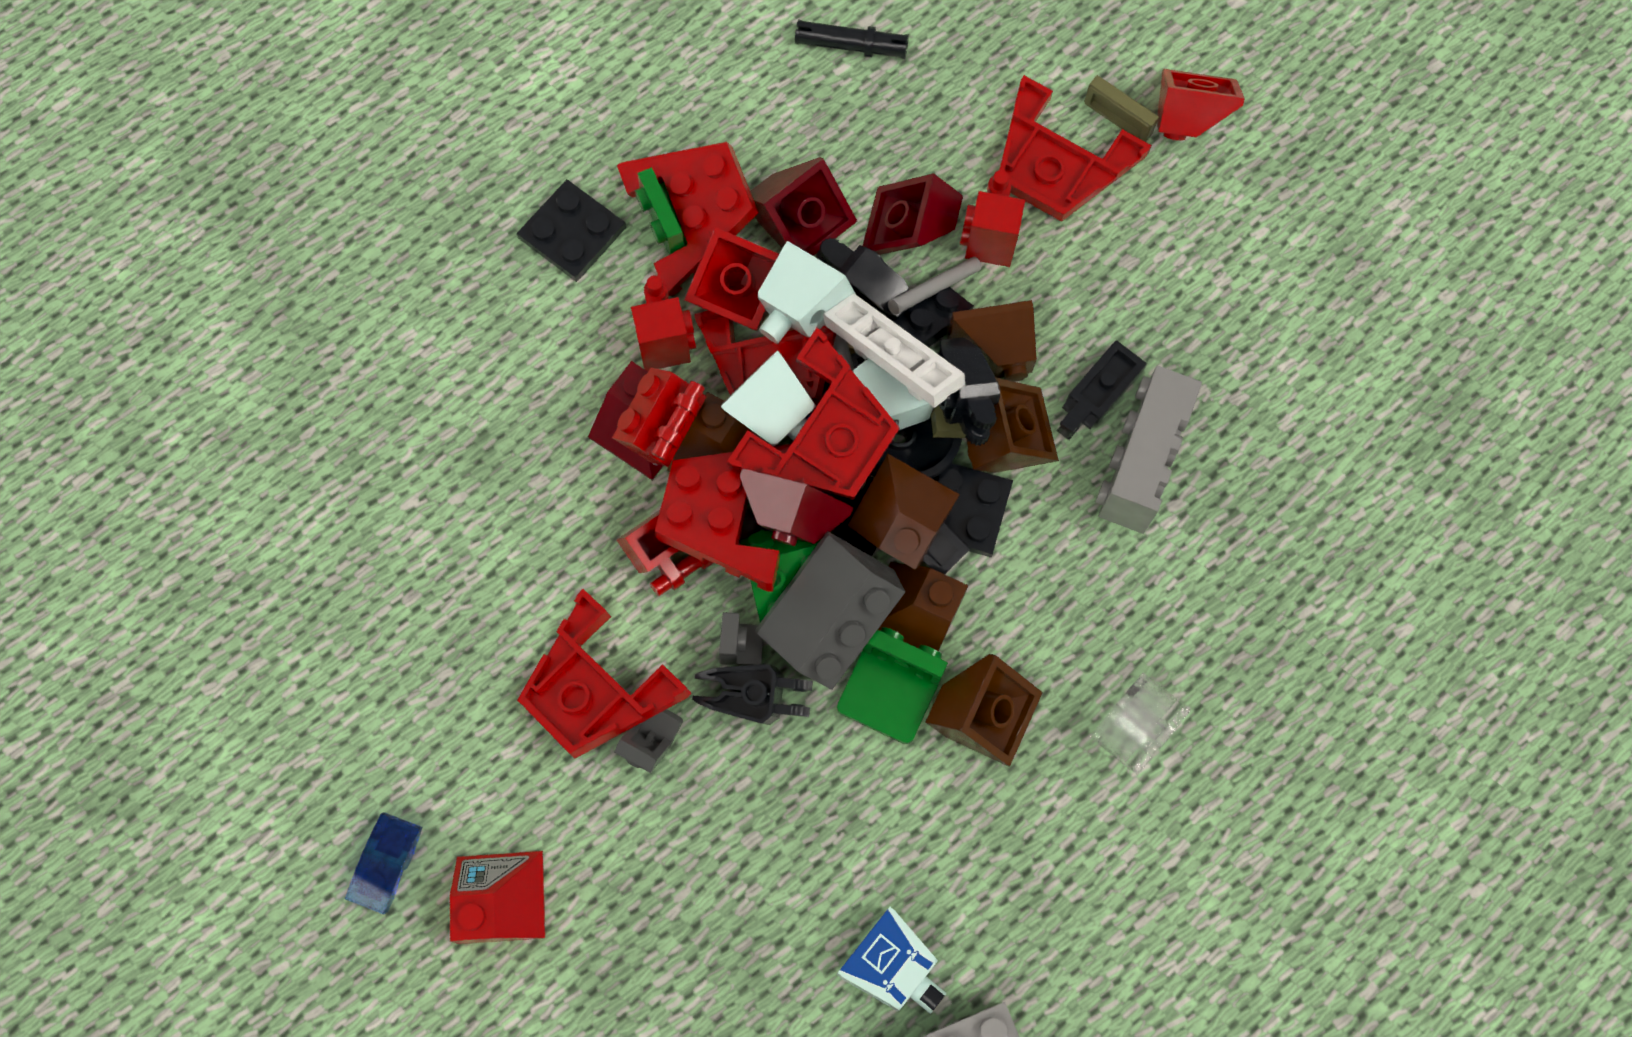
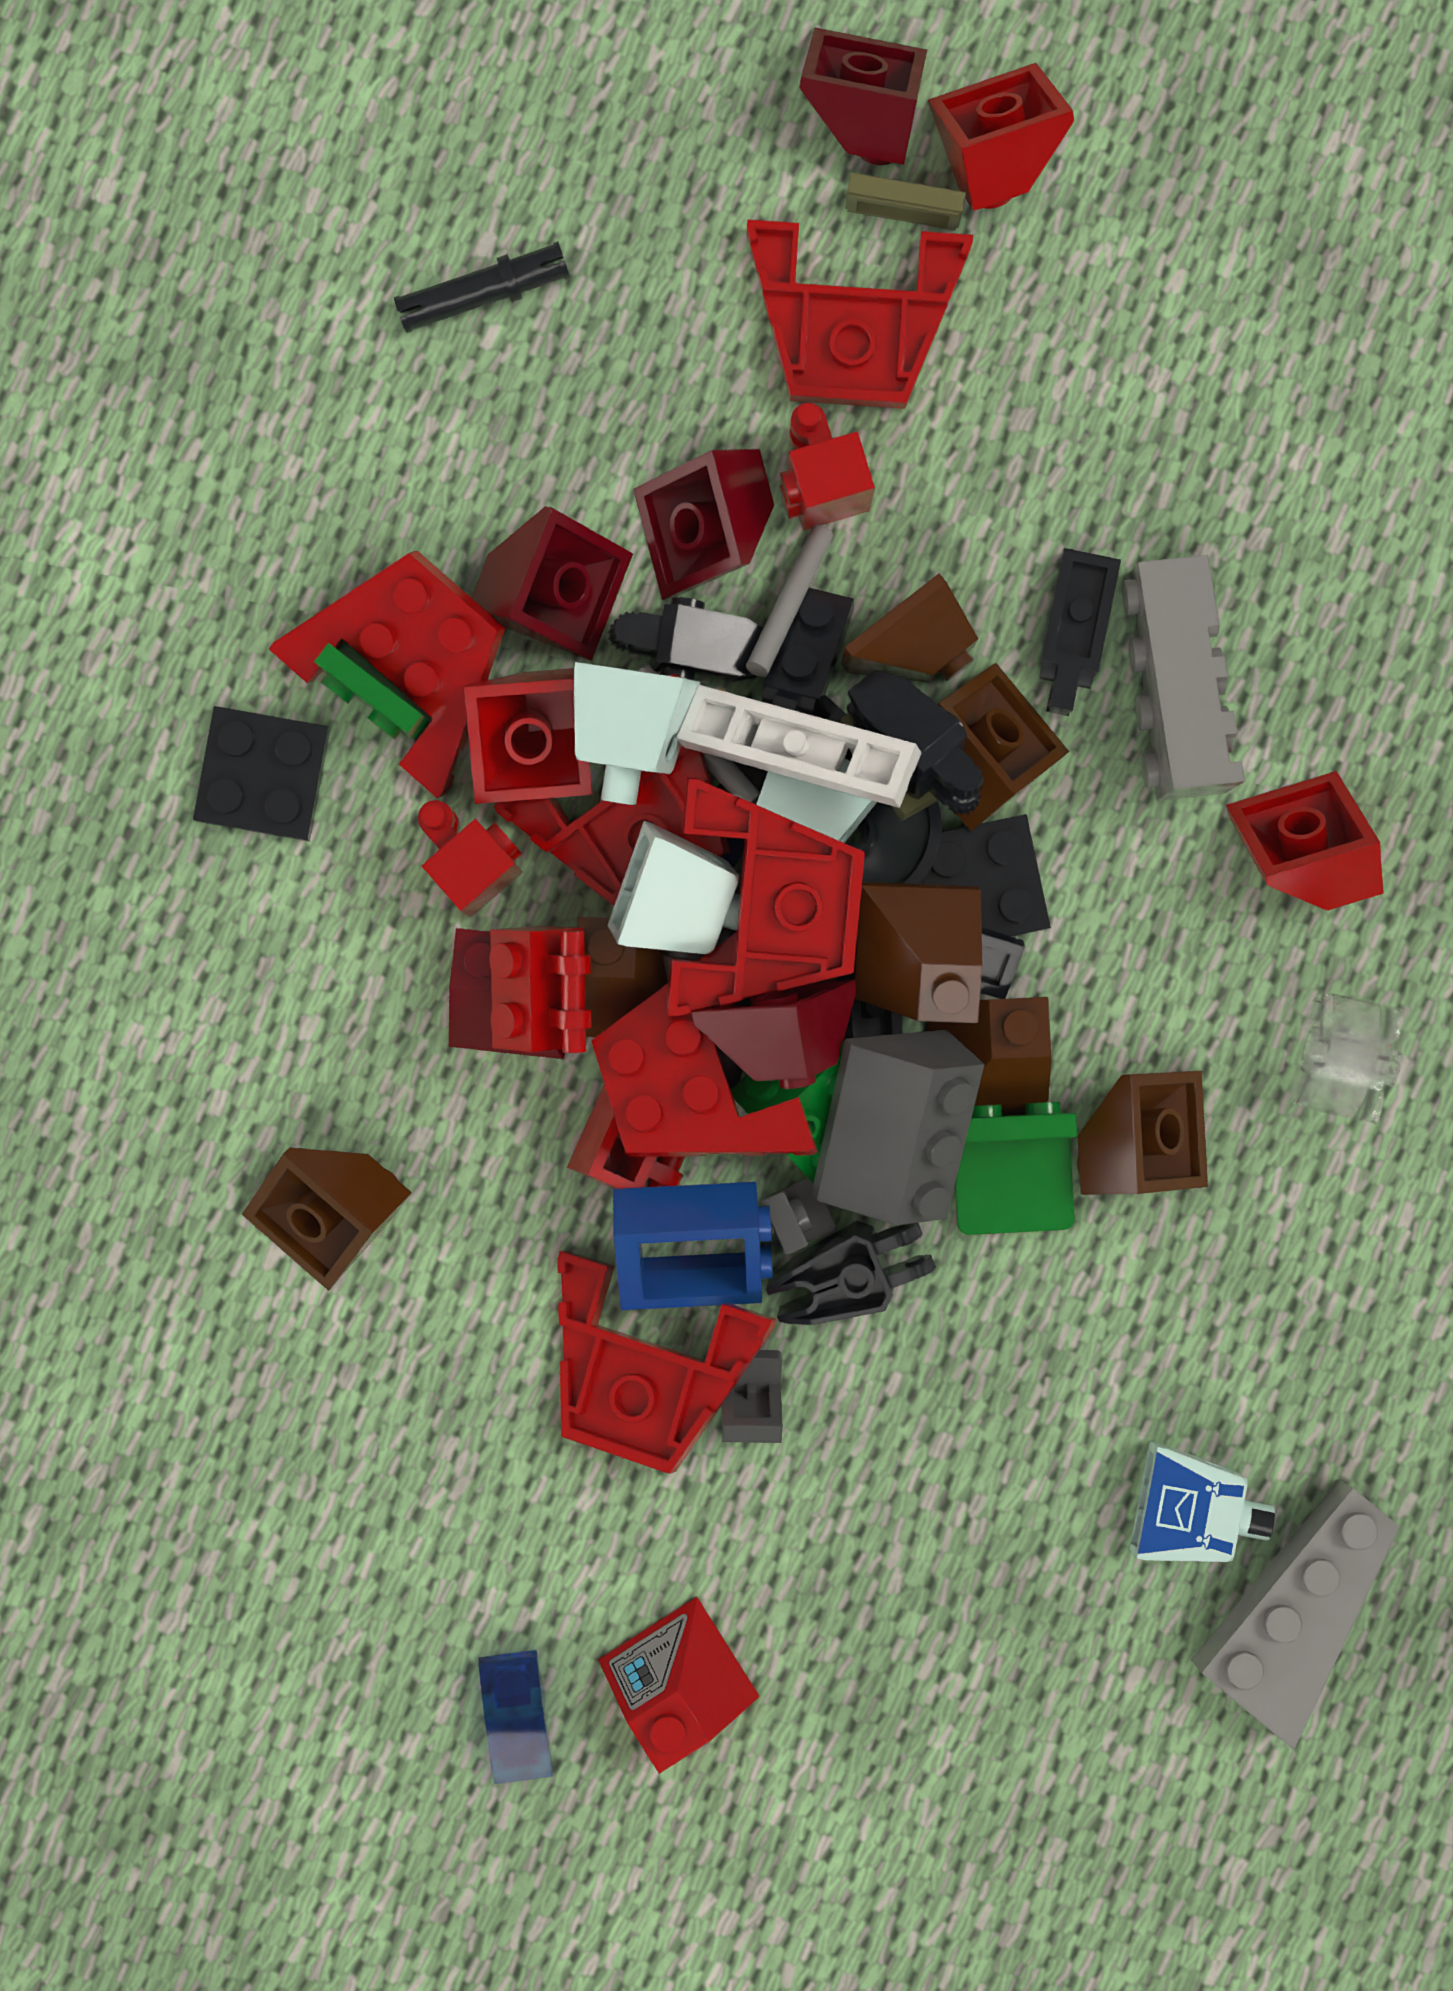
camera: 25 degrees left, 15 degrees up
(458, 486) = (325, 1208): none -> reddish brown slope
(674, 593) = (690, 1215): none -> blue window
(1127, 45) = (864, 92): none -> dark red slope
(1183, 587) = (1311, 842): none -> red slope

